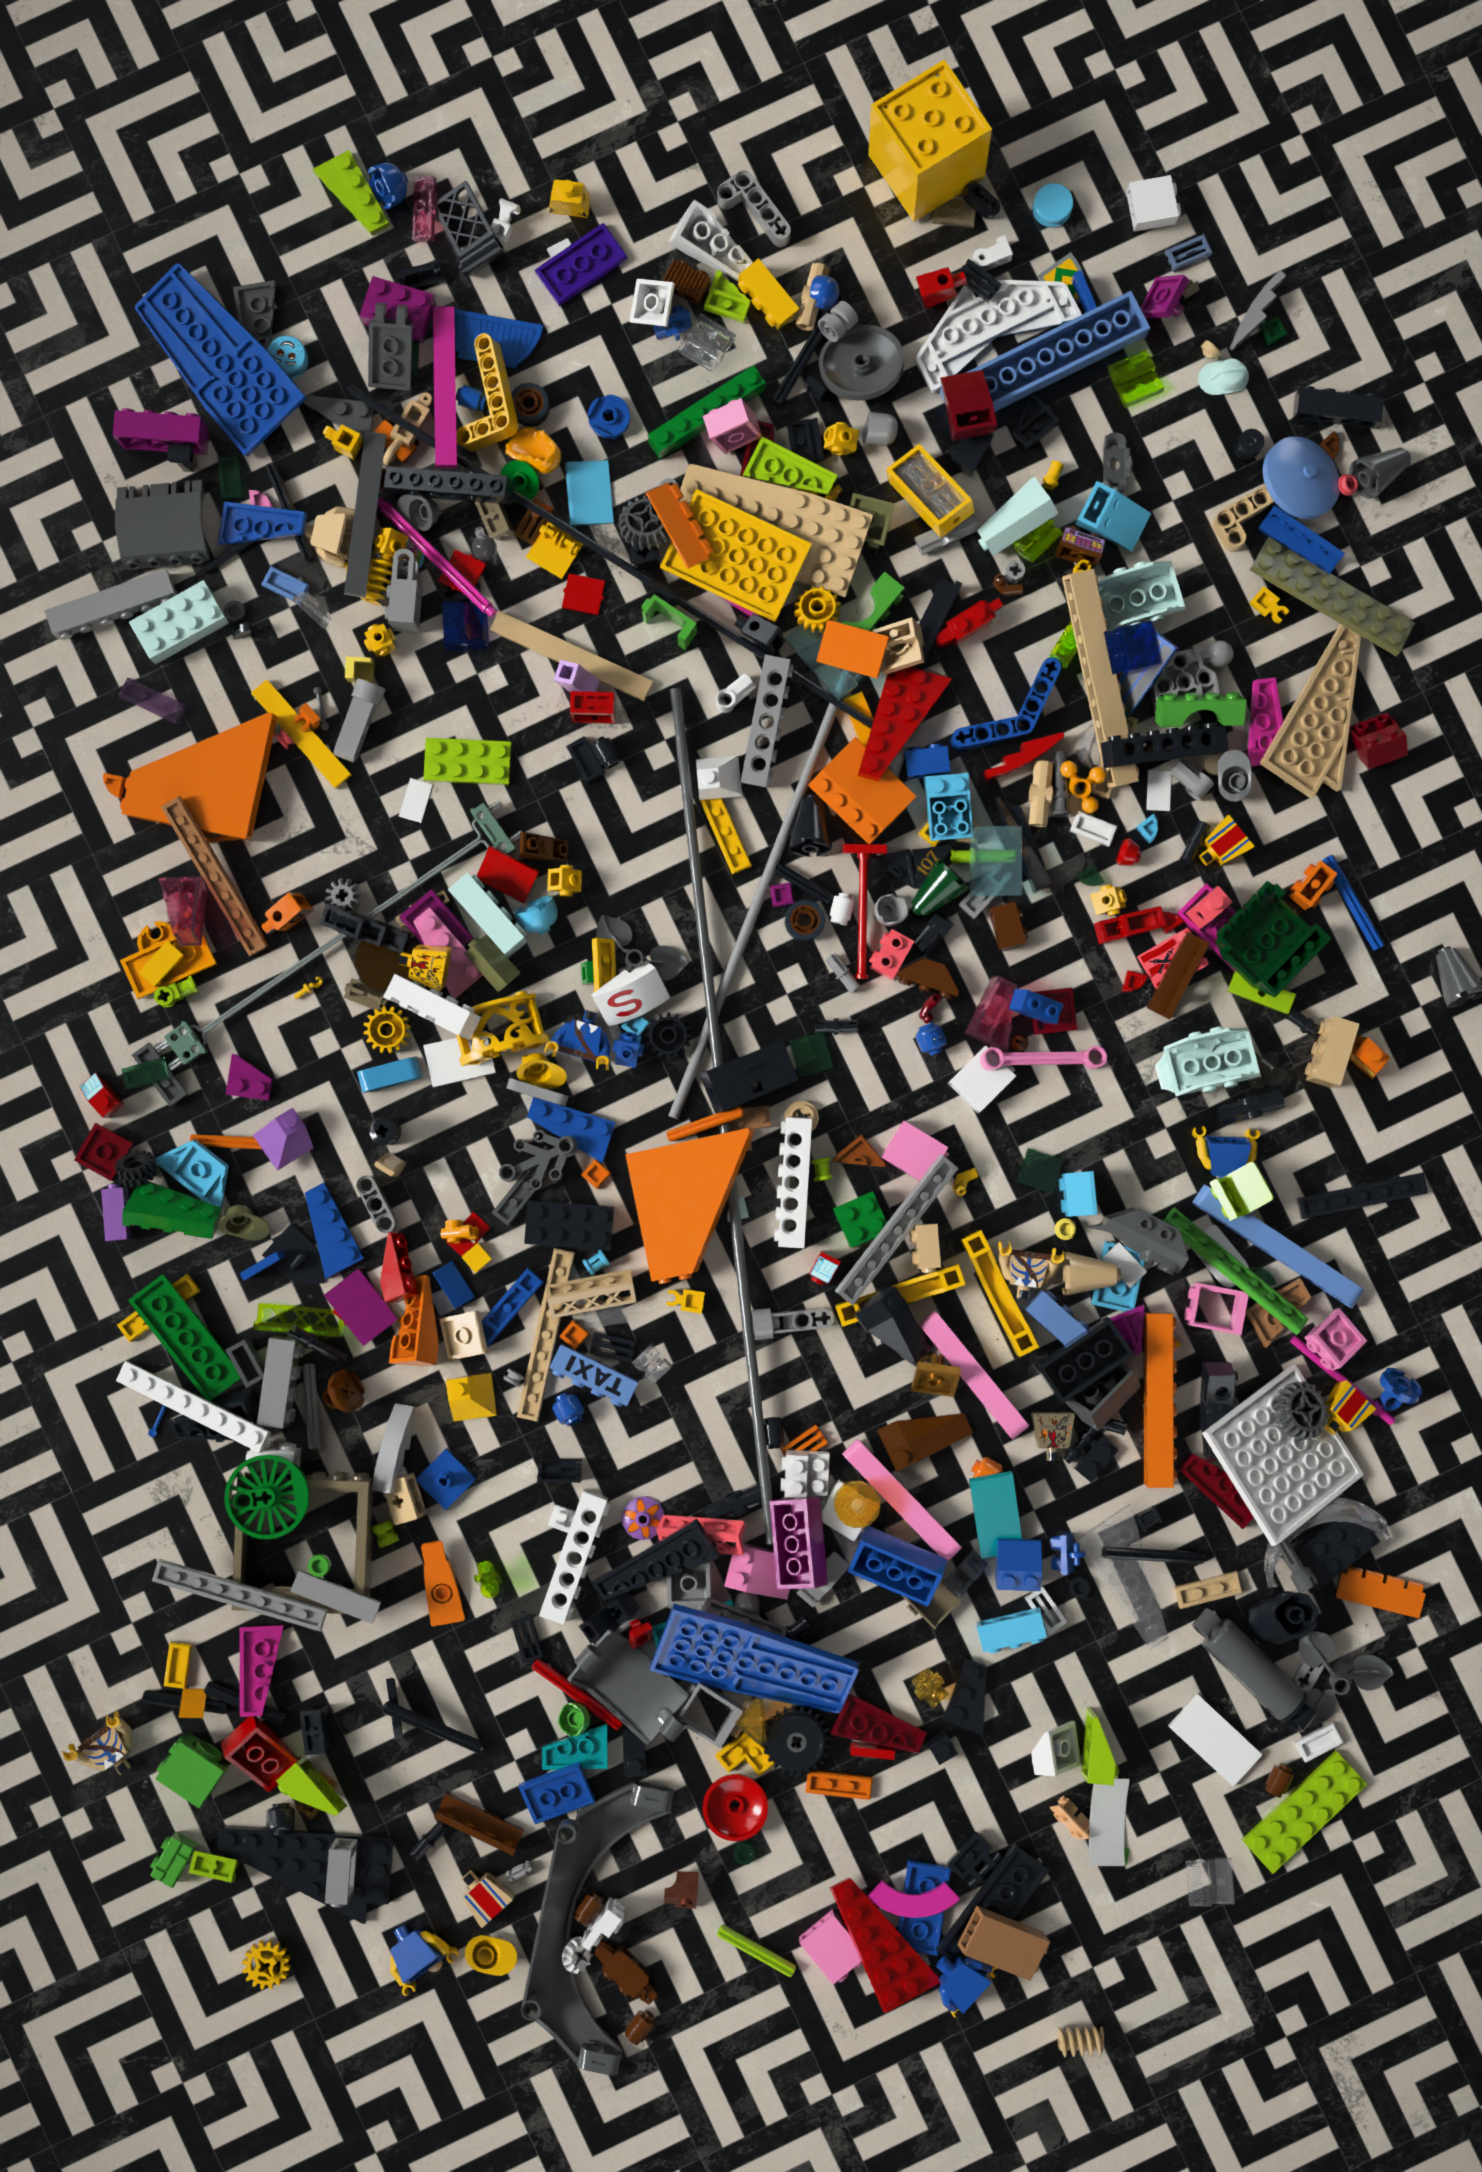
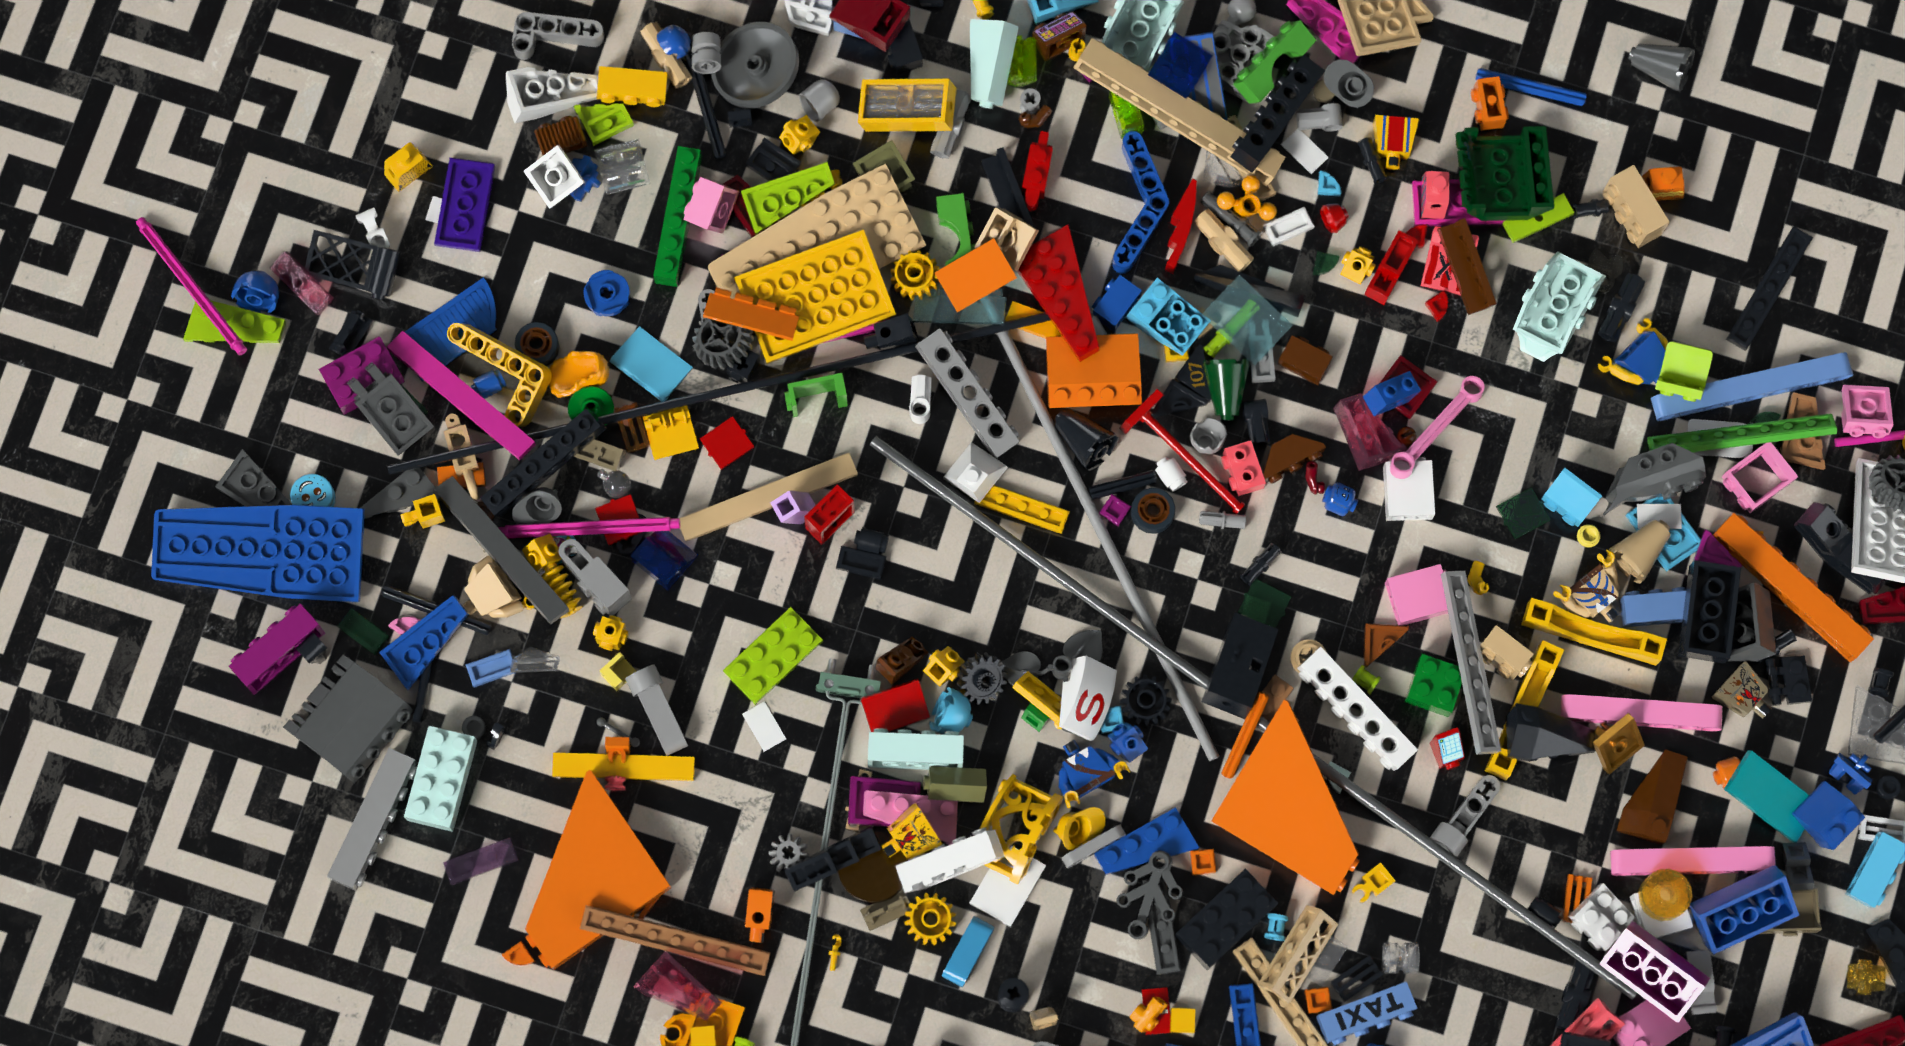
camera: 45 degrees left, 10 degrees down
(350, 138) = (188, 282): none -> dark pink piece
(579, 912) = (981, 677): none -> black gear

